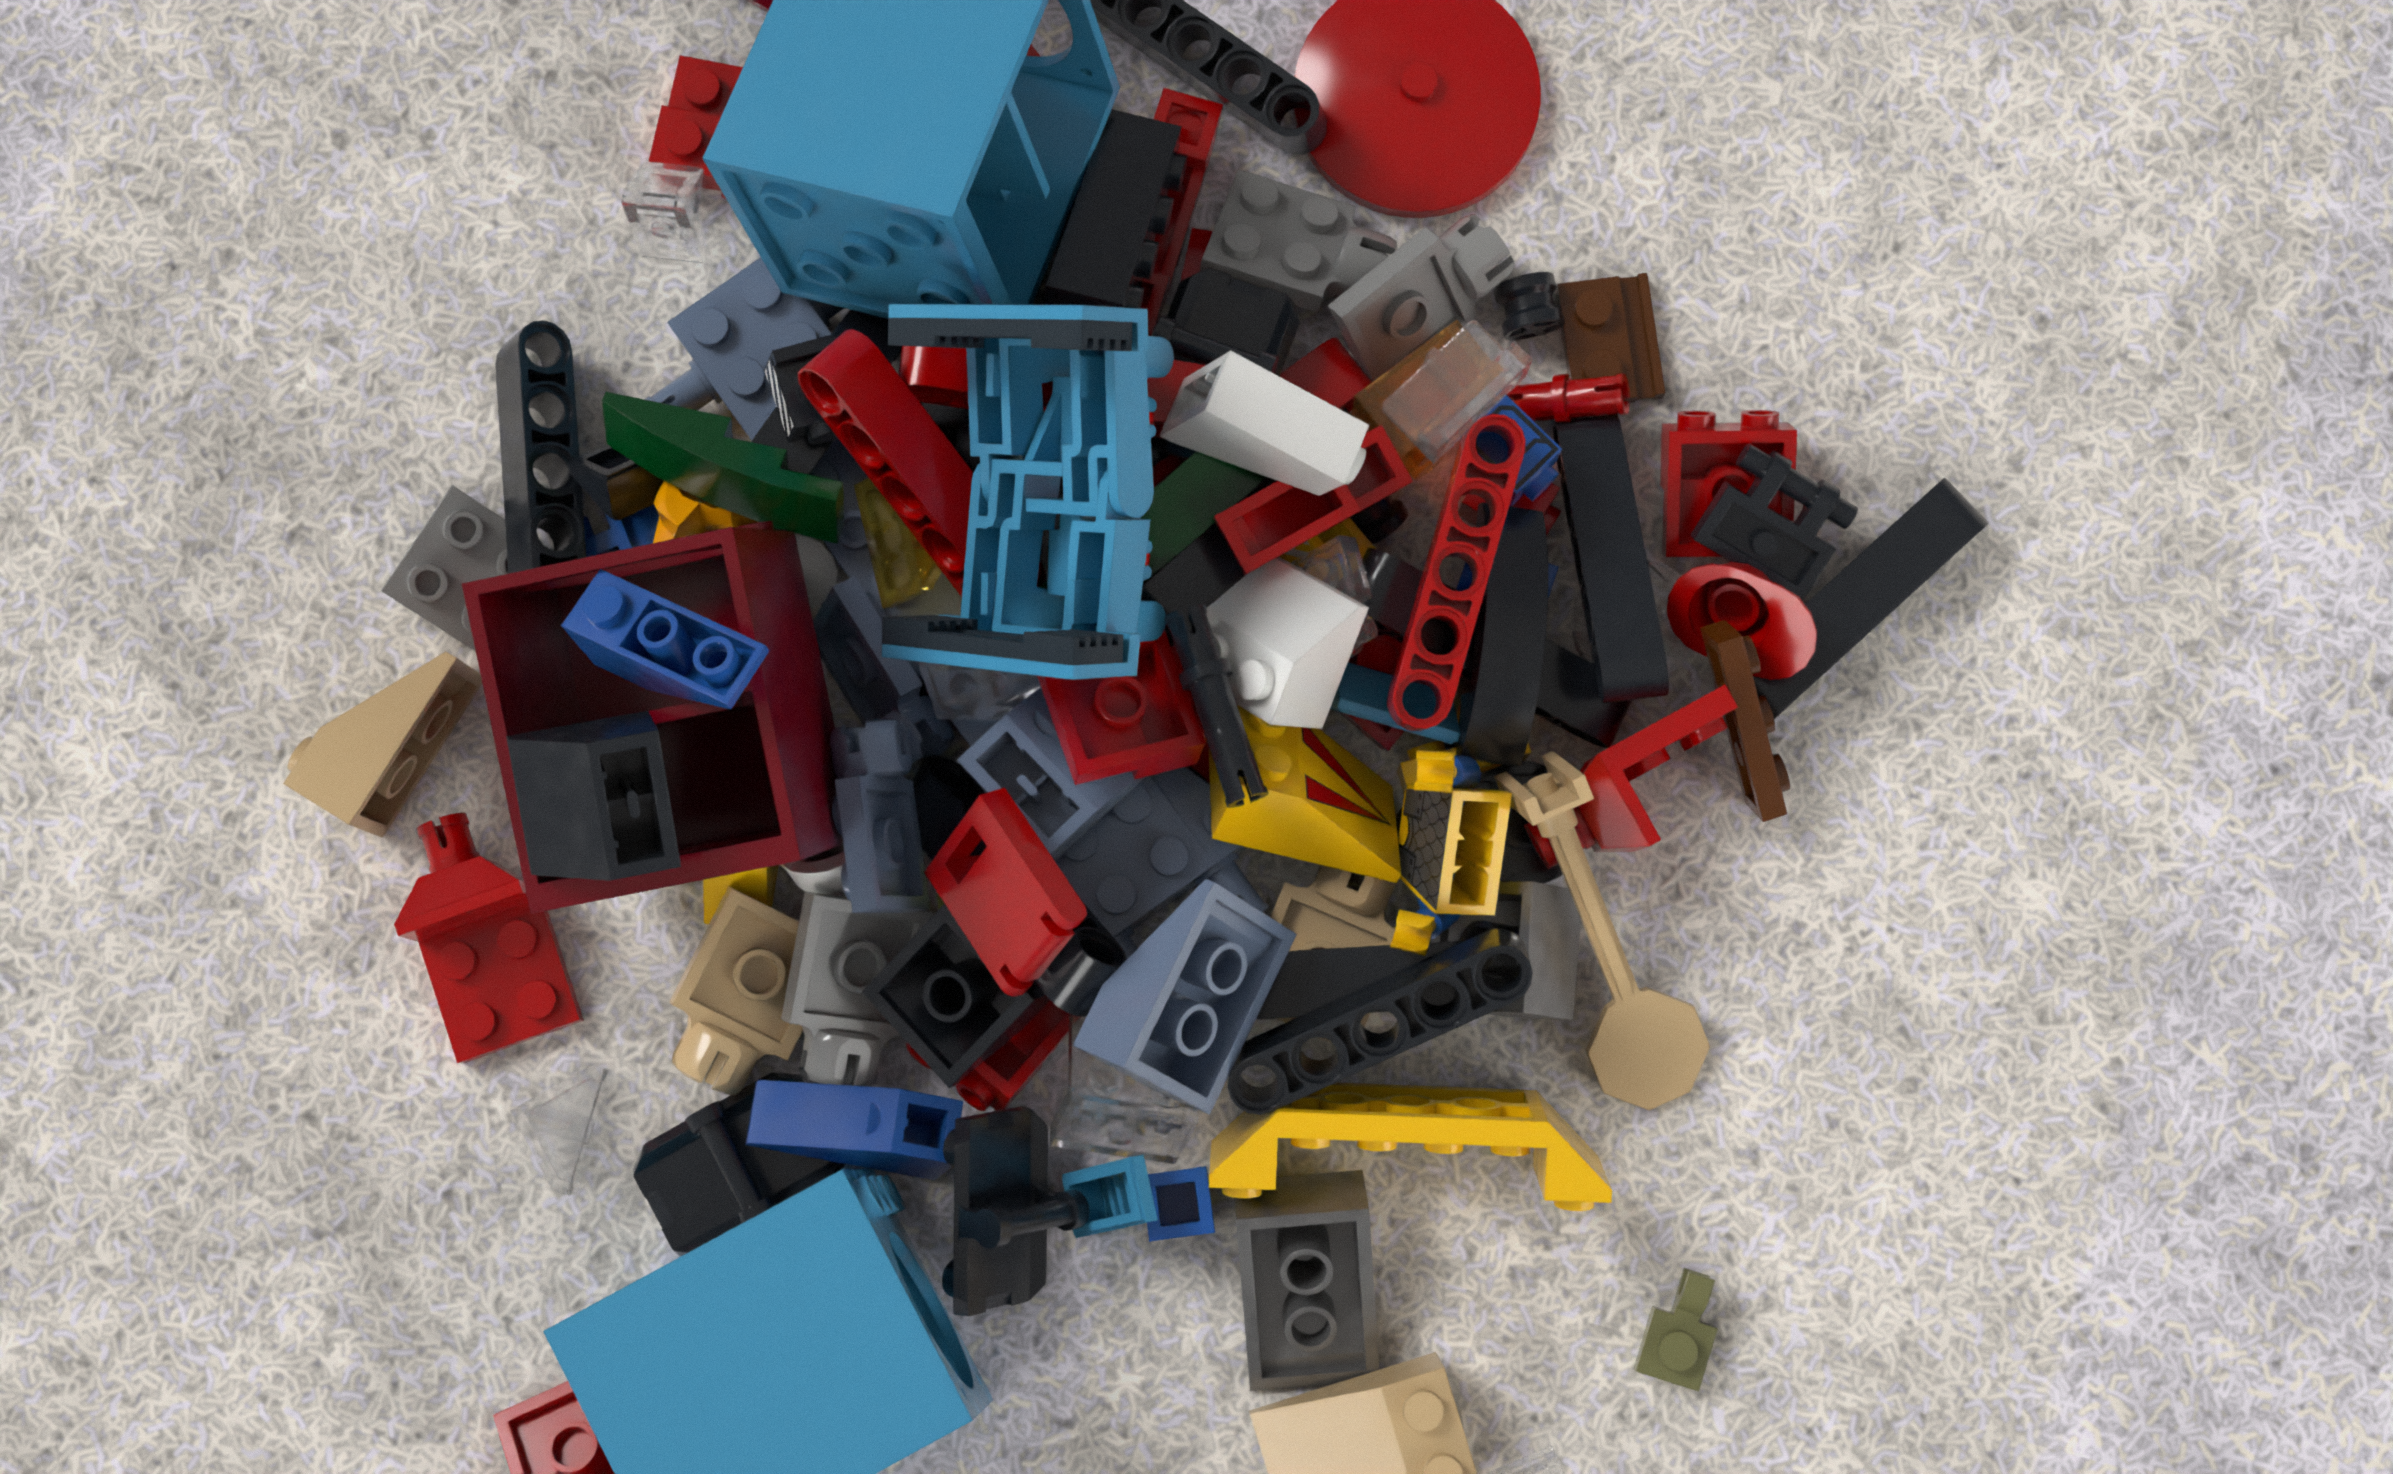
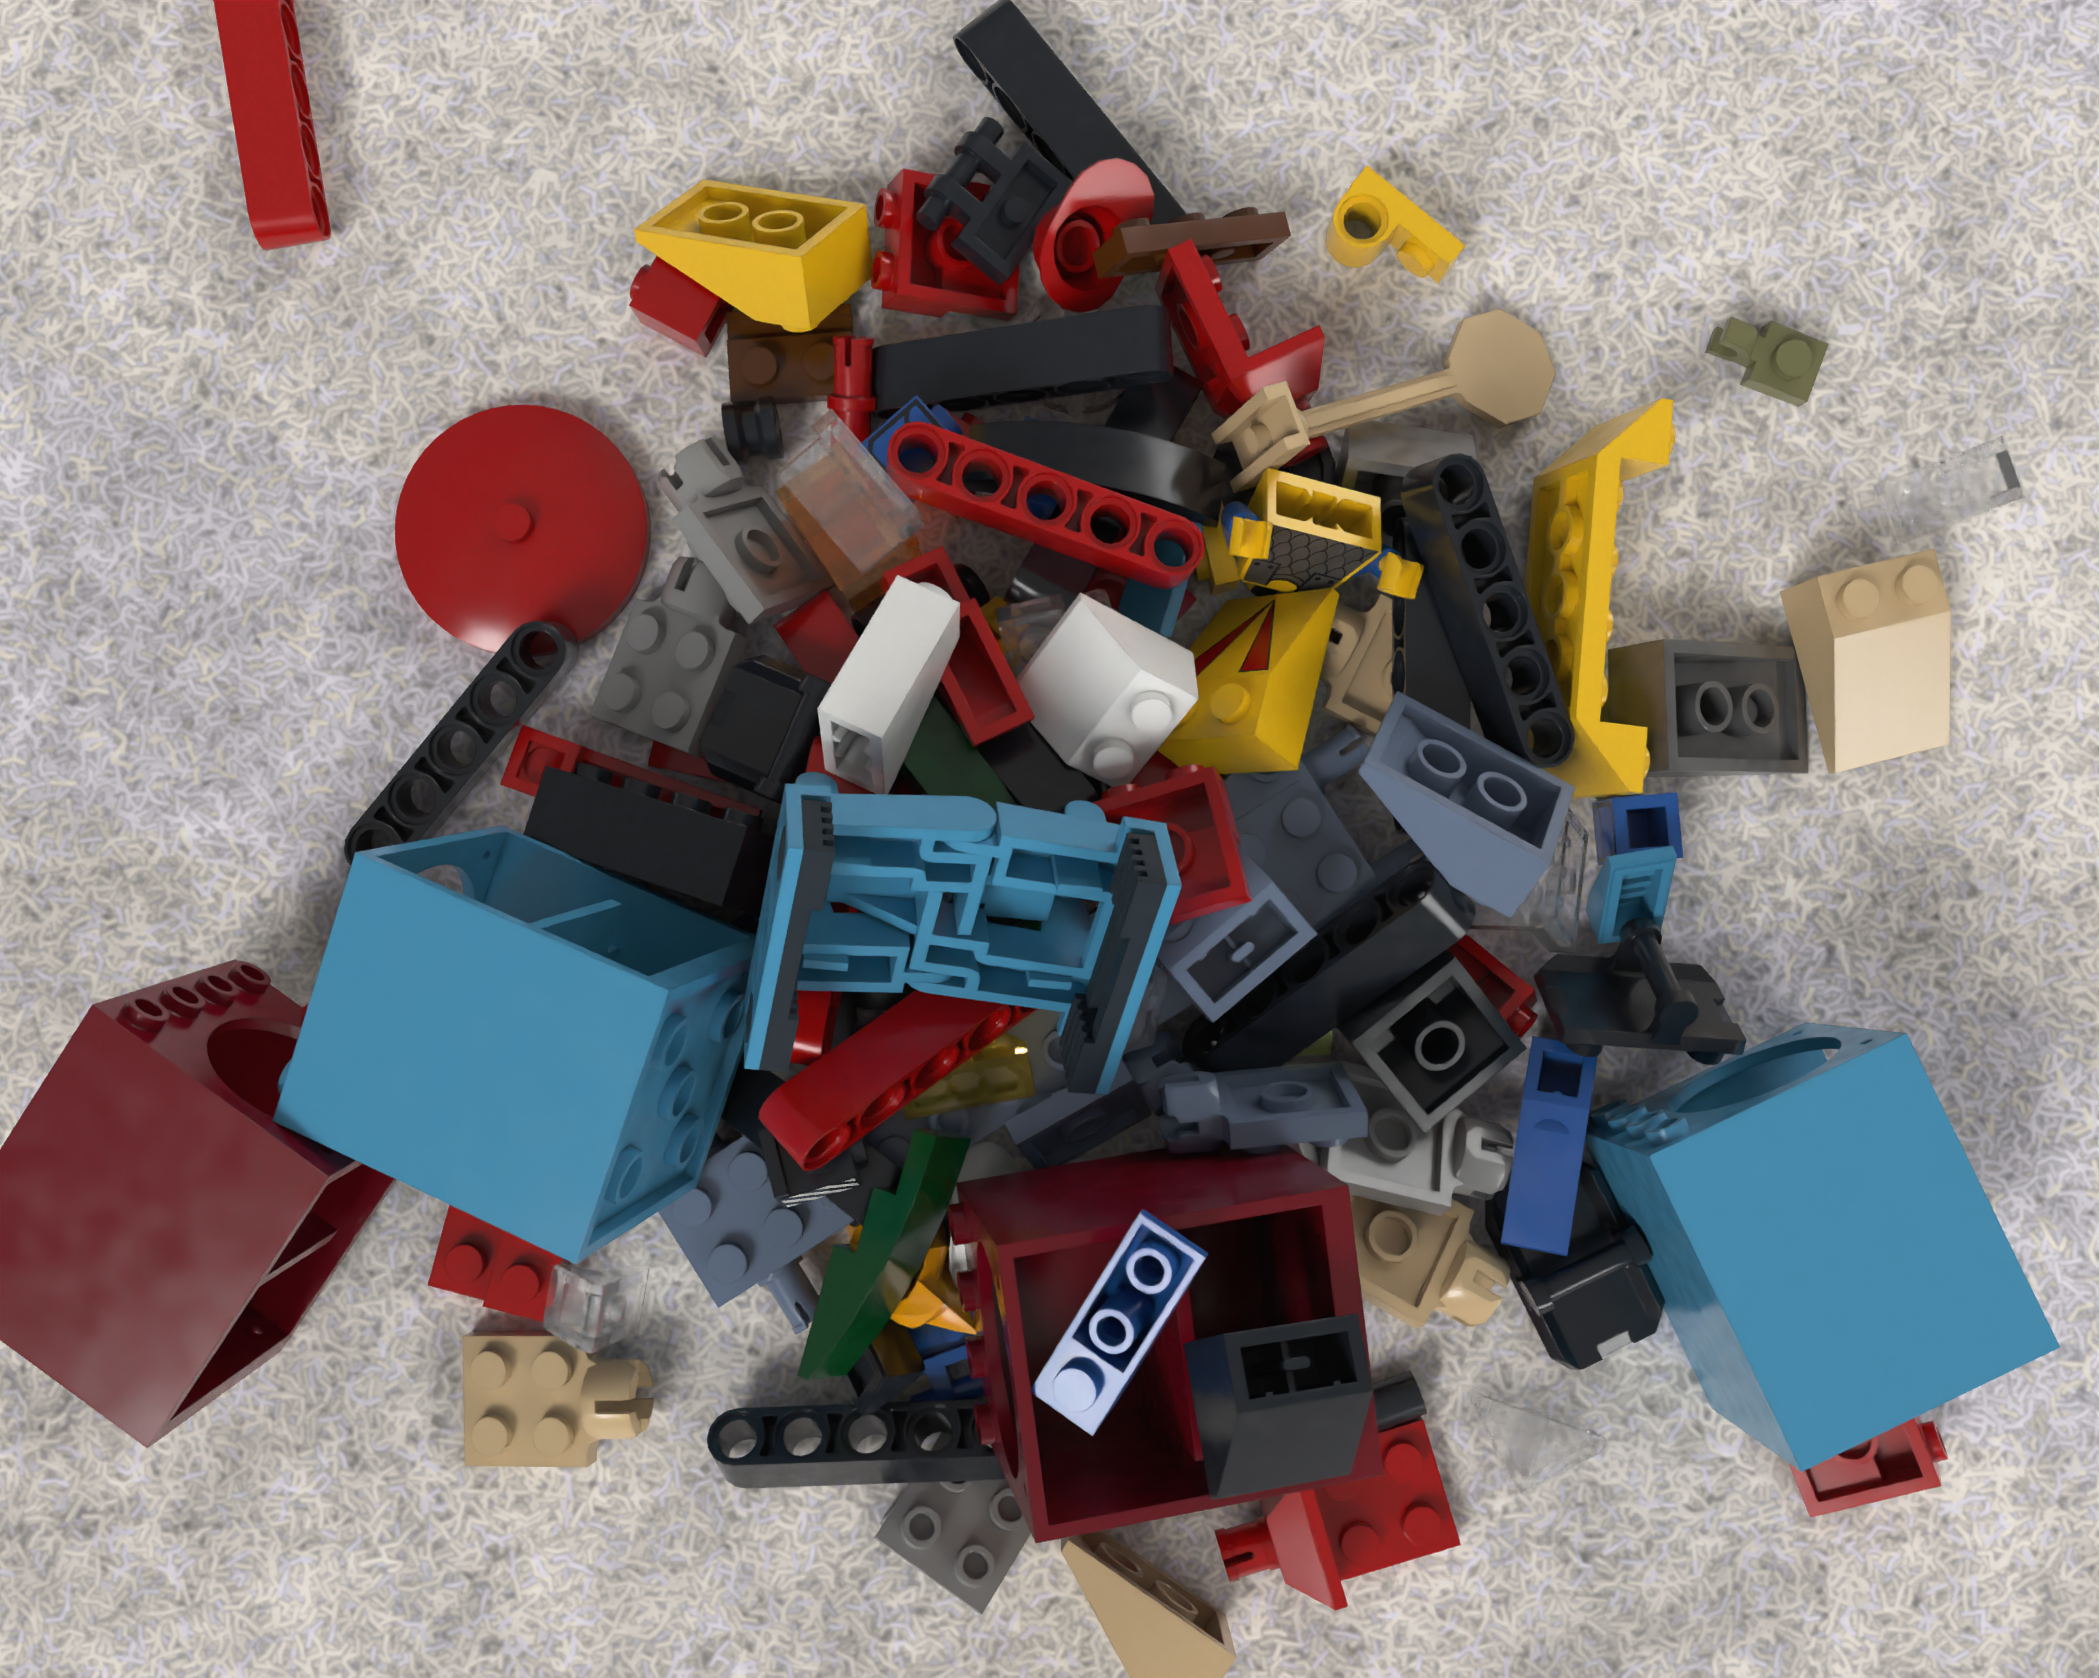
camera: 90 degrees left, 5 degrees up
(571, 173) = (546, 1401): none -> tan plate
(595, 987) = (1397, 1400): none -> black hinge
(1008, 898) = (1359, 974): red container -> none
(1215, 704) = (1176, 752): black pin -> none
(1651, 228) = (677, 306): none -> red brick
(1707, 302) = (765, 249): none -> yellow slope
(1768, 960) = (1395, 220): none -> yellow plate

